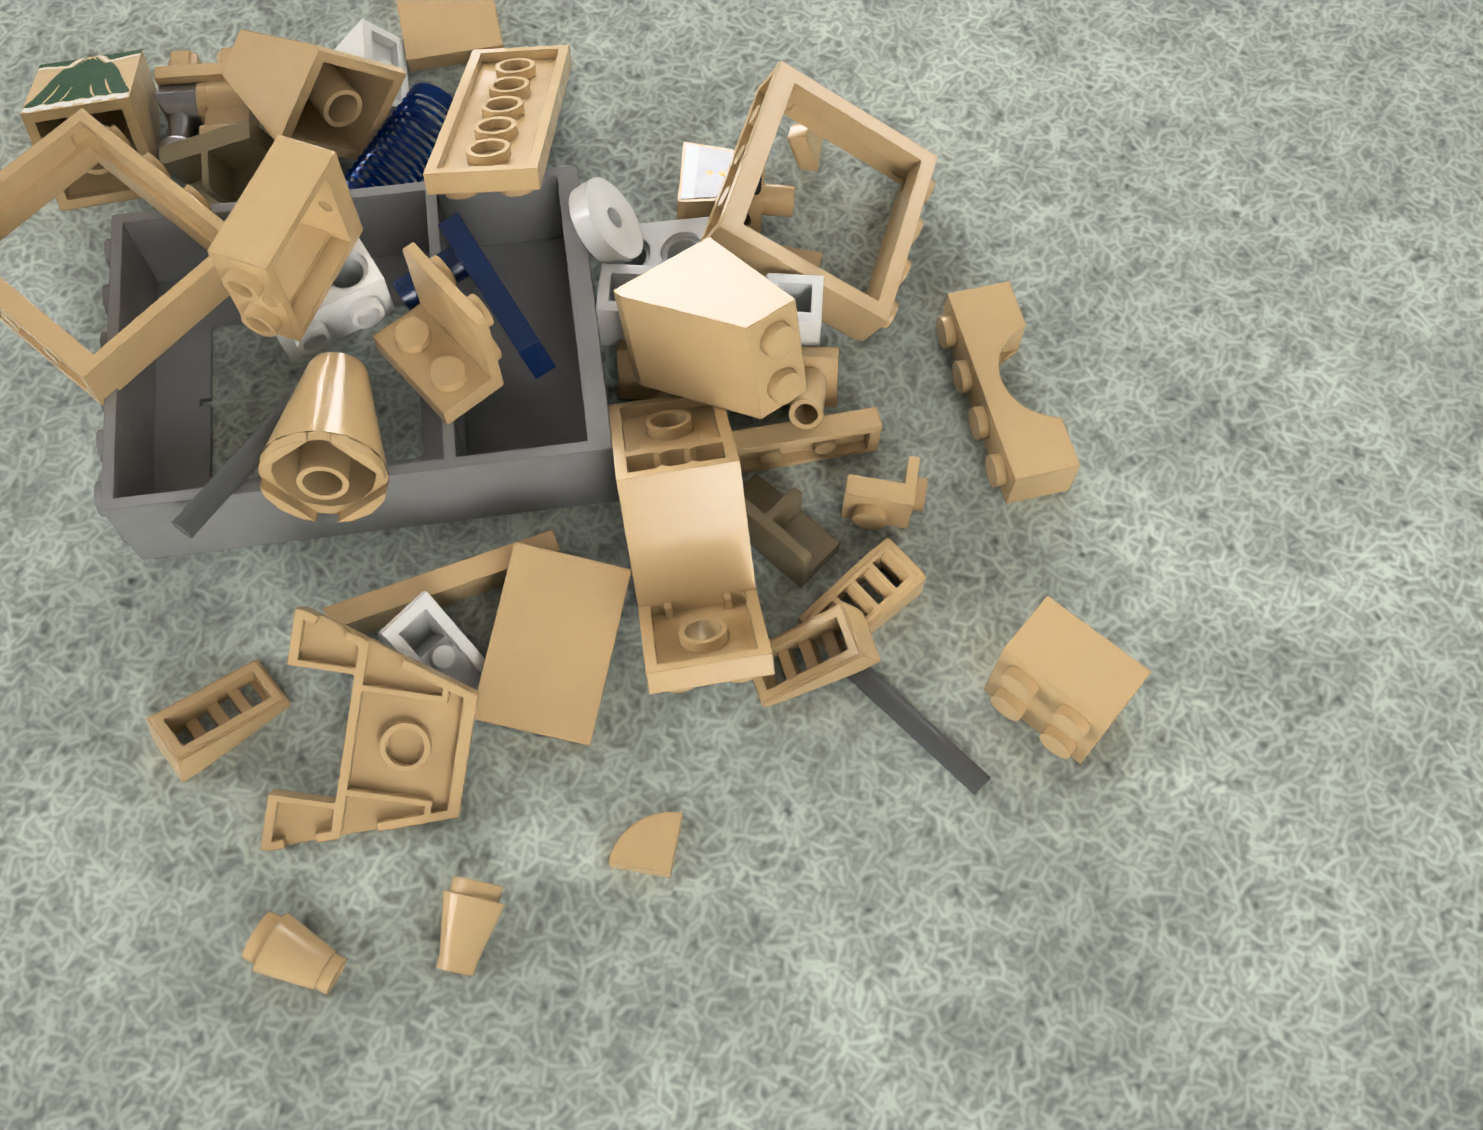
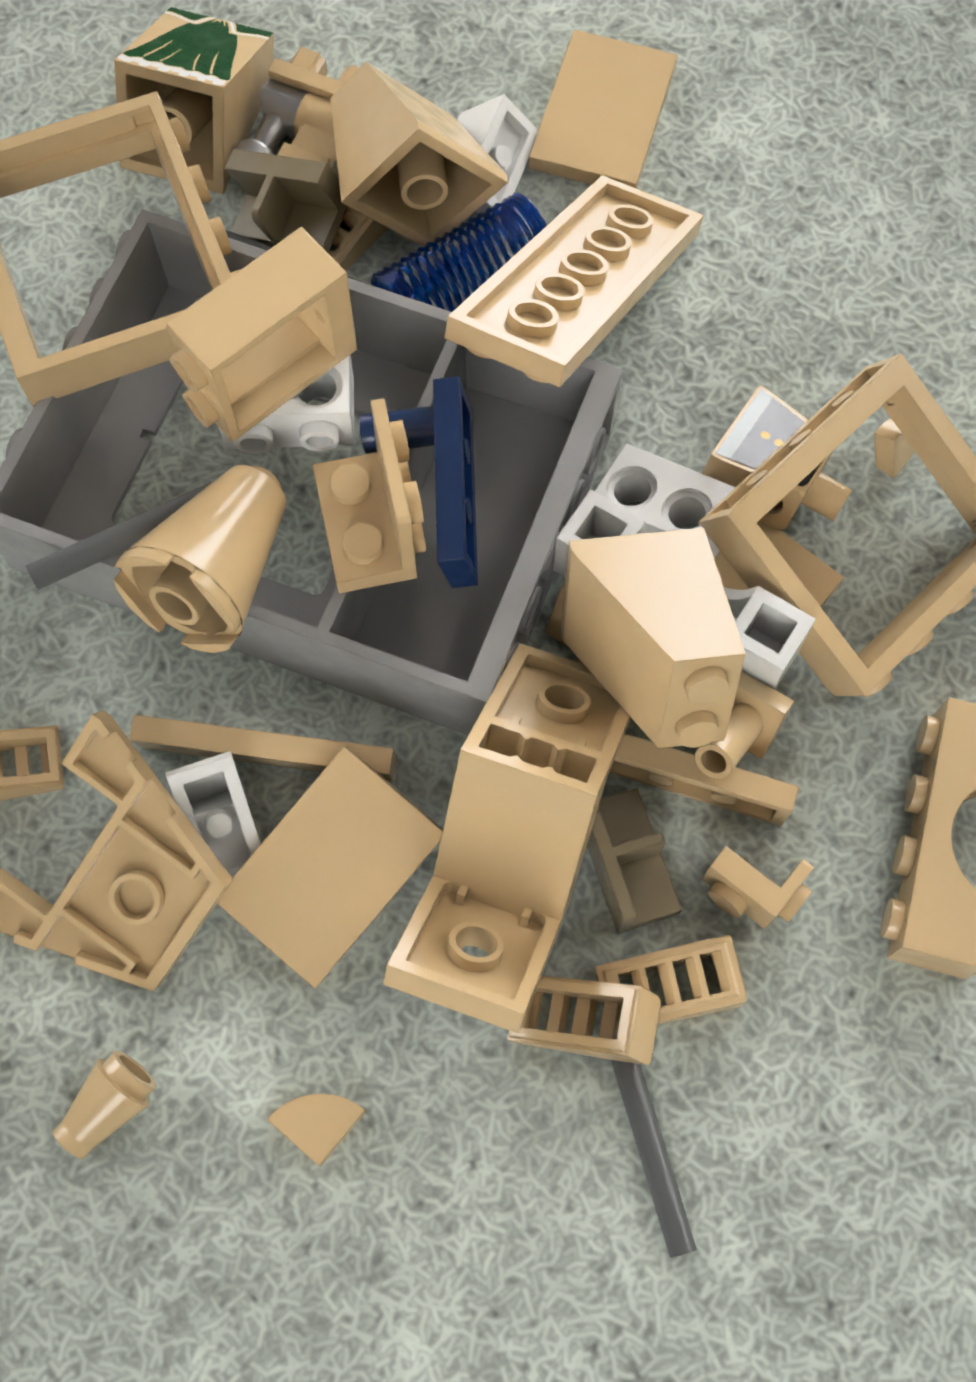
camera: 30 degrees right, 5 degrees up
(605, 222) = (618, 446): white piece -> none
(1063, 680) = (826, 1204): tan brick -> none

